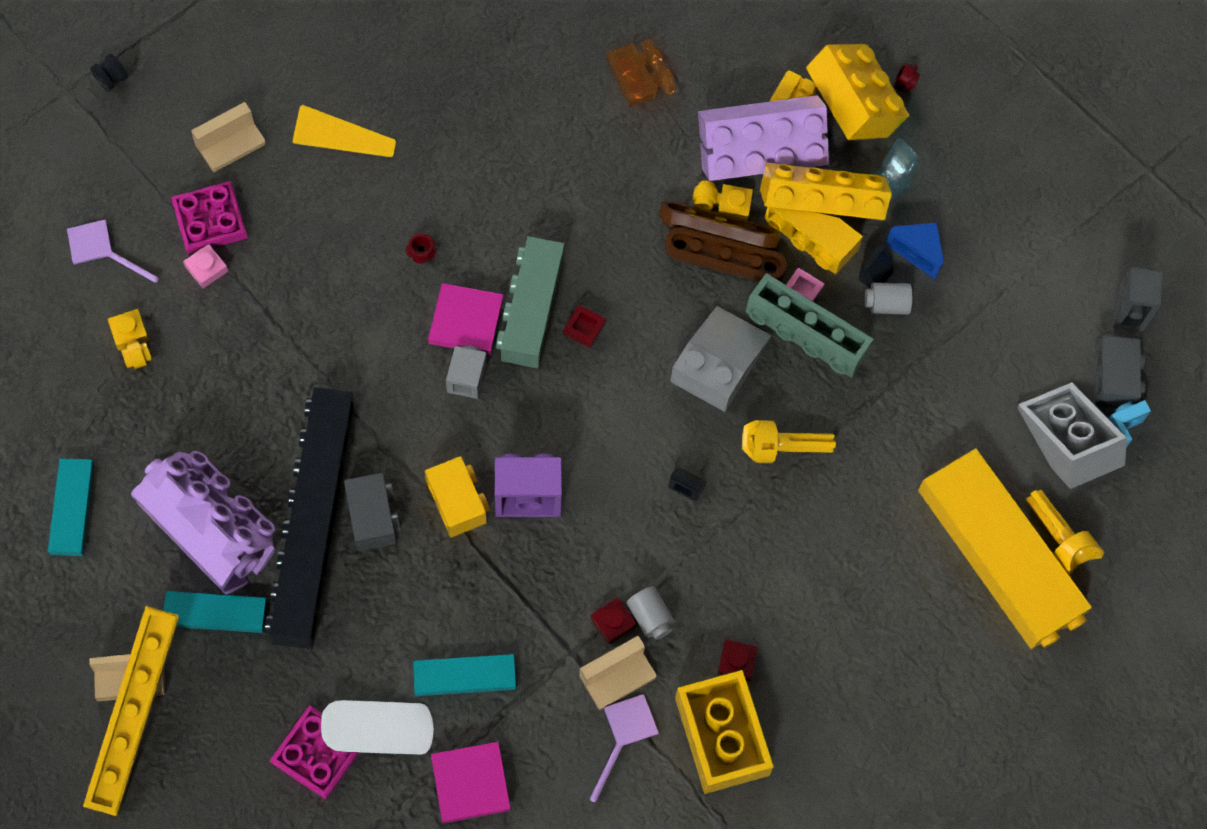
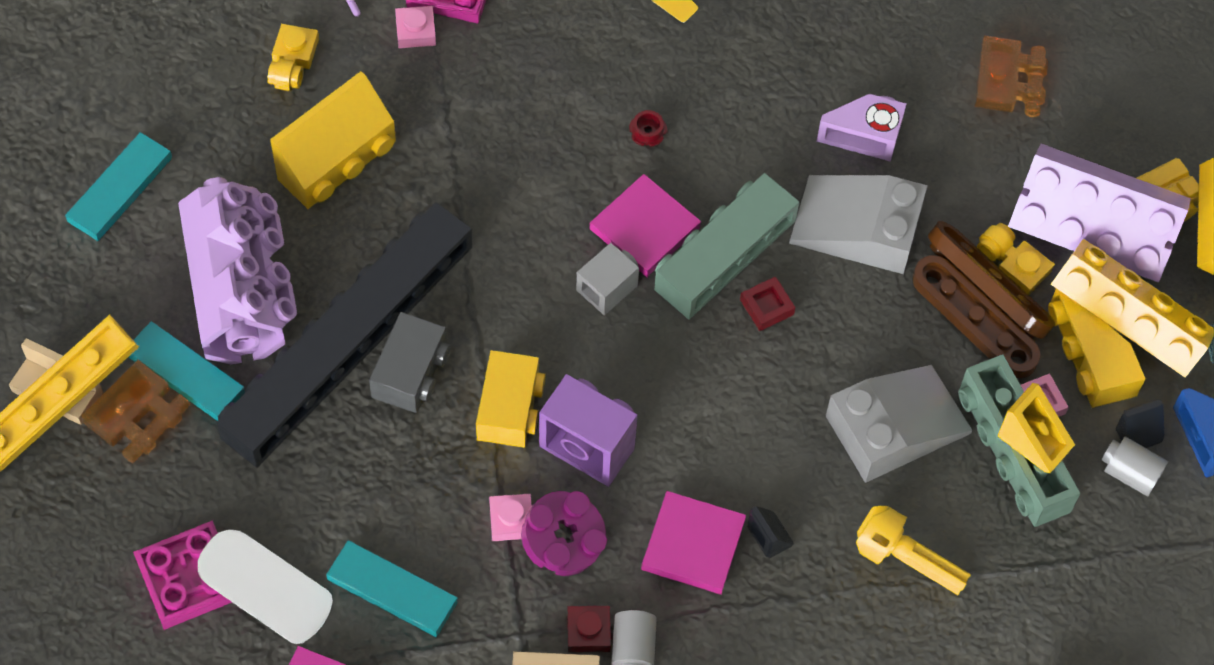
camera: 35 degrees right, 5 degrees down
(190, 661) = (127, 403): none -> clear orange plate
(211, 386) = (333, 141): none -> yellow slope
(511, 577) = (508, 515): none -> bright pink plate
(564, 551) = (556, 554): none -> magenta plate
(569, 162) = (864, 126): none -> lavender slope
(607, 230) = (860, 218): none -> light grey slope
(644, 520) = (693, 542): none -> dark pink tile
(823, 313) = (1036, 430): none -> yellow slope

